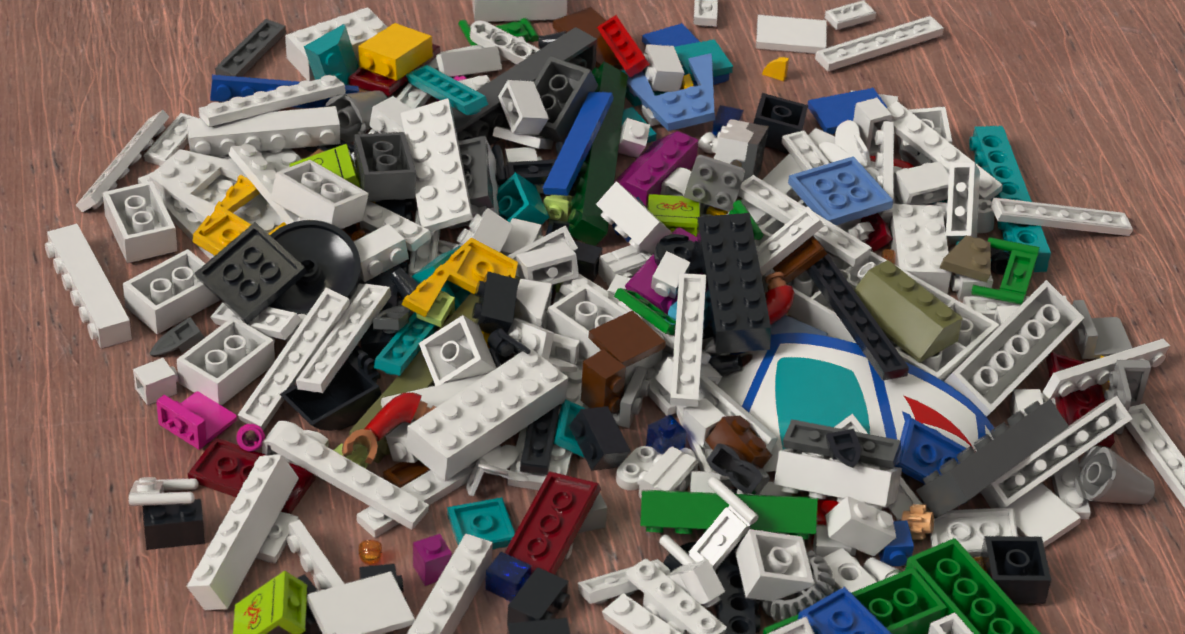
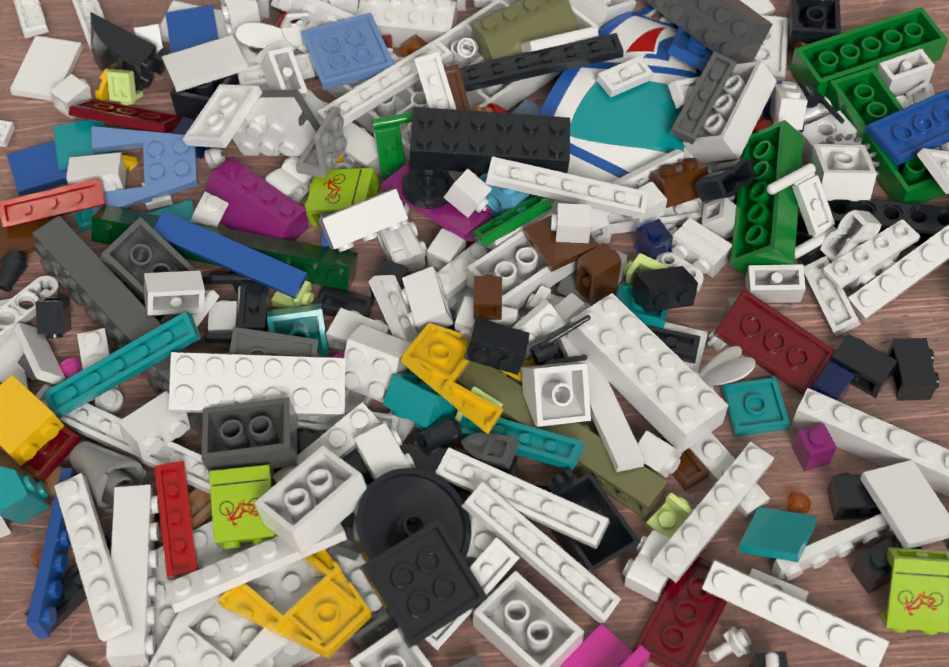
camera: 80 degrees left, 15 degrees up
(219, 504) = (736, 641): none -> white plate
(250, 443) = (643, 606): dark pink cone -> none
(283, 154) = (176, 519): none -> red plate
(329, 525) = (778, 534): none -> teal tile
(398, 410) = (650, 448): red piece -> none
(506, 60) = (53, 316): none -> black brick
(544, 288) = (488, 297): none -> reddish brown brick
(625, 528) = (776, 282): none -> white brick
(631, 430) = (641, 263): none -> yellowish green bracket
(635, 334) = (572, 223): none -> white brick
(730, 116) = (222, 116): none -> white tile
(738, 78) = (125, 115): none -> dark red tile
(757, 49) = (70, 92): none -> white brick
(769, 73) = (122, 86): none -> yellowish green bracket
(788, 150) = (283, 71): none -> white brick
(802, 61) = (122, 50): none -> black piece
(803, 108) = (204, 63): none -> white tile
(834, 81) = (151, 34): none -> brick
(844, 447) = (728, 87): black plate -> none
(858, 385) = (624, 76): none -> white plate
(888, 553) = (814, 98): none -> black plant
(895, 333) = (559, 39): none -> white tile

